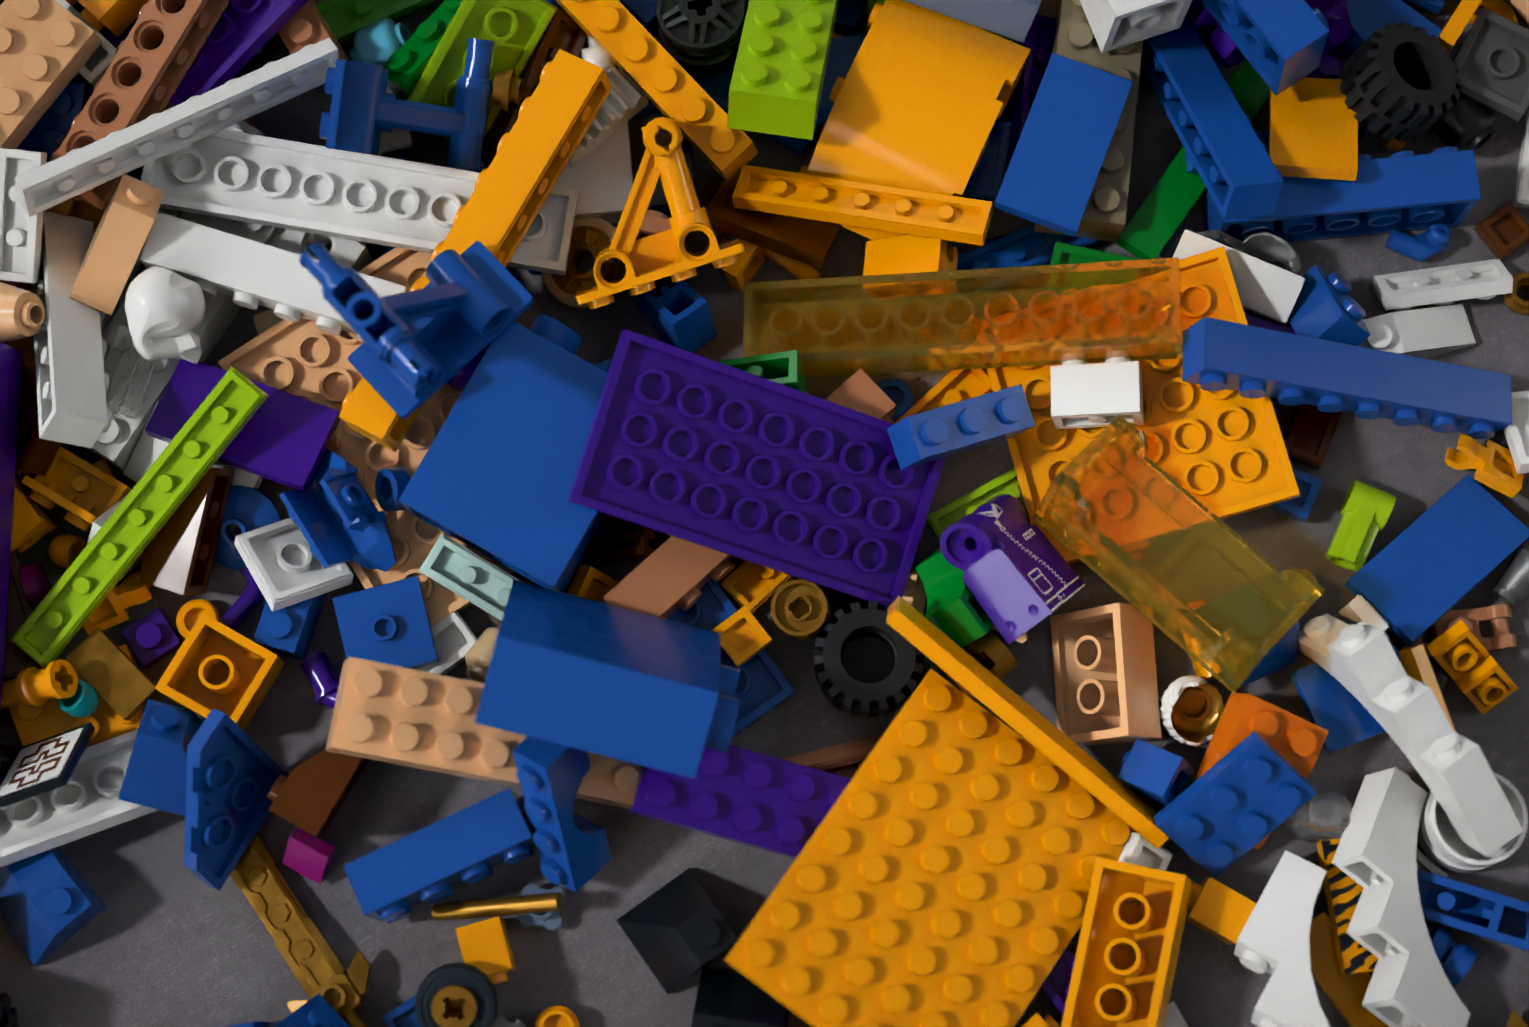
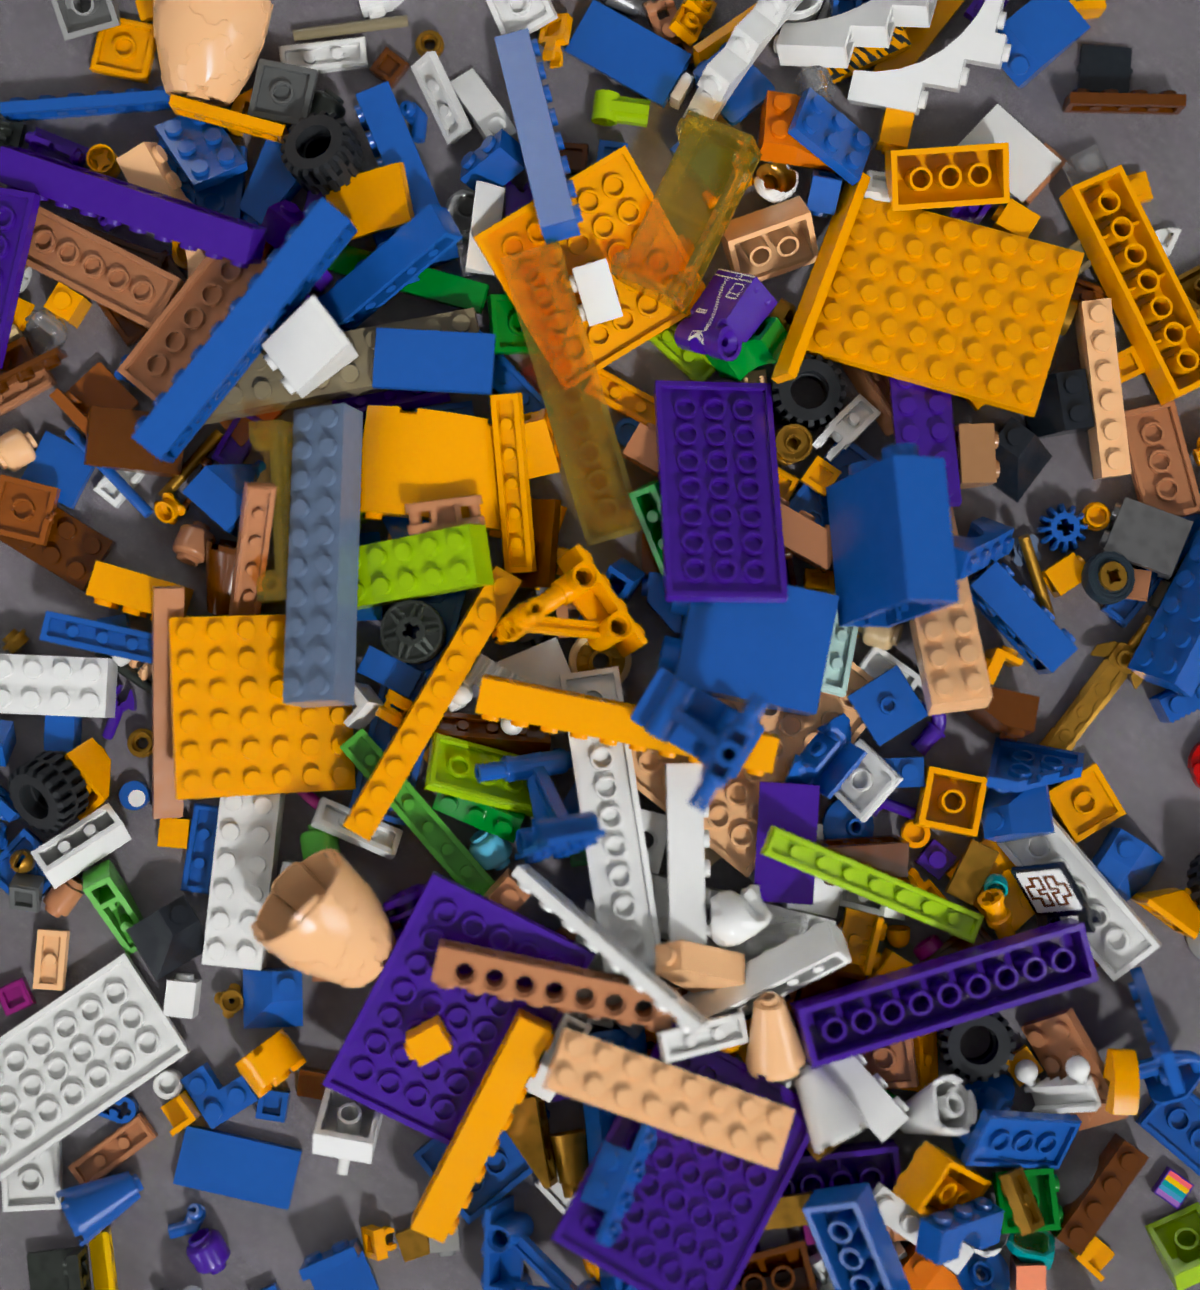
camera: 115 degrees left, 10 degrees up
(148, 874) = (1085, 803): none -> light orange plate
(308, 855) = (1046, 706): magenta tile -> none
(390, 486) = (797, 728): blue tile -> none
(391, 788) = (1000, 656): none -> light orange bracket
(507, 89) = (502, 747): pearl gold plate -> none
(561, 983) = (1066, 519): none -> blue gear
(698, 862) = (977, 454): none -> medium nougat slope
(802, 700) = (848, 425): none -> white hinge
(843, 92) = (444, 513): none -> nougat plate
(960, 426) = (646, 372): blue brick -> none

